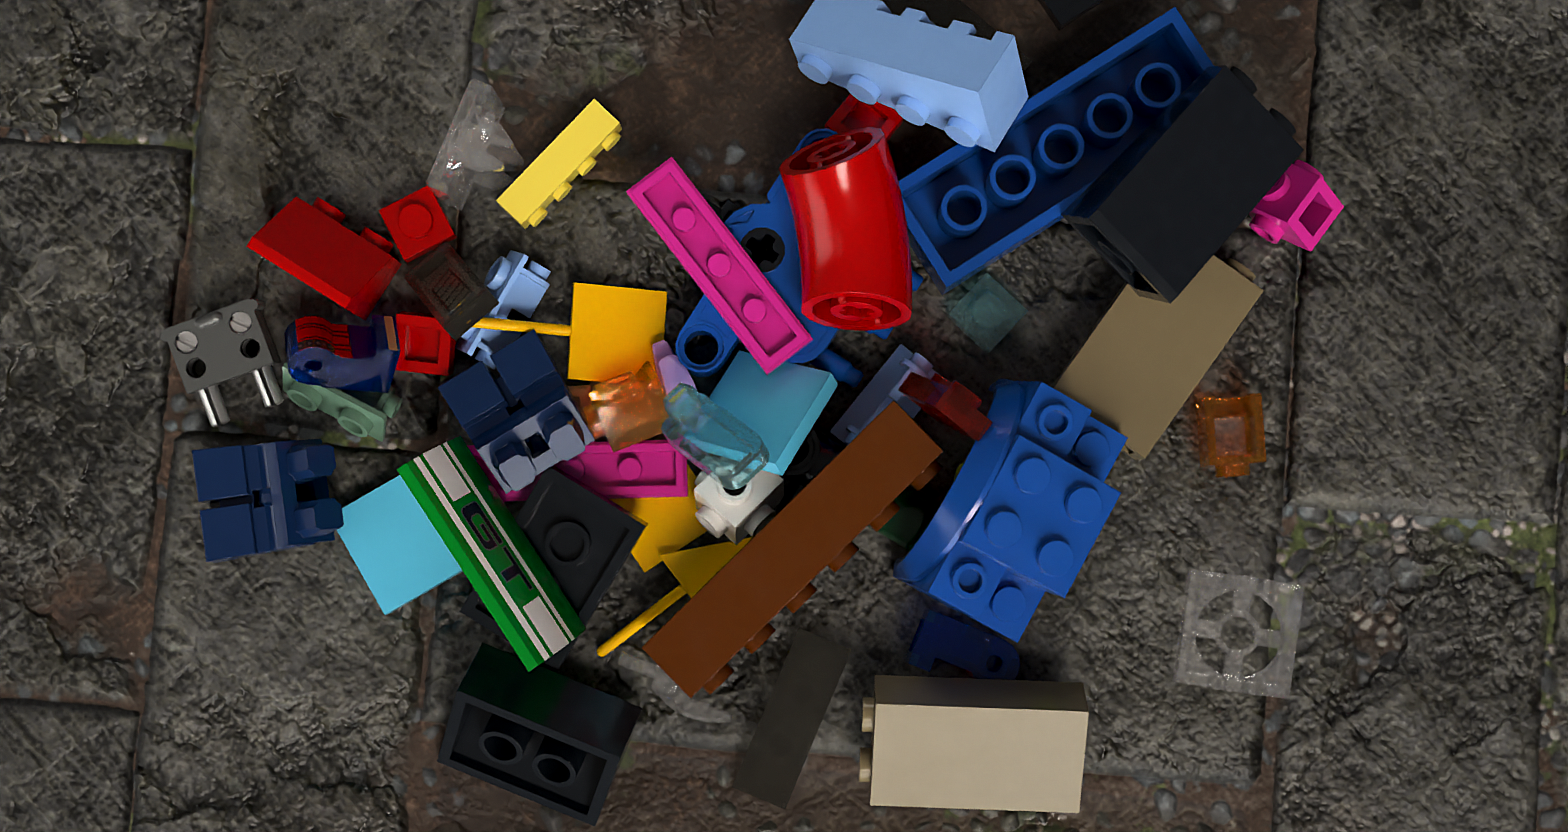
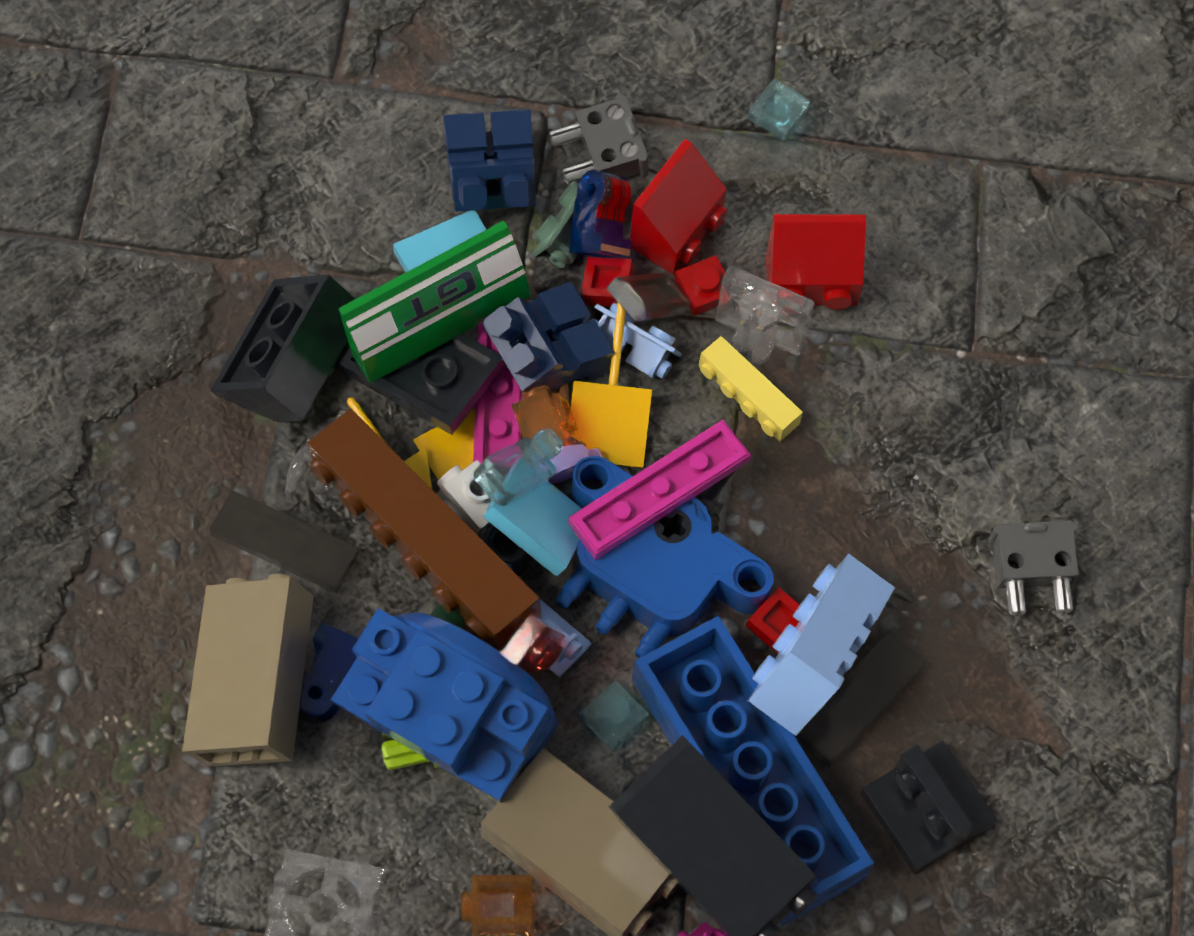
camera: 90 degrees right, 20 degrees down
(164, 135) = (779, 109): none -> clear light blue plate
(393, 83) = (818, 257): none -> red slope
(850, 231) = (682, 576): red brick -> none

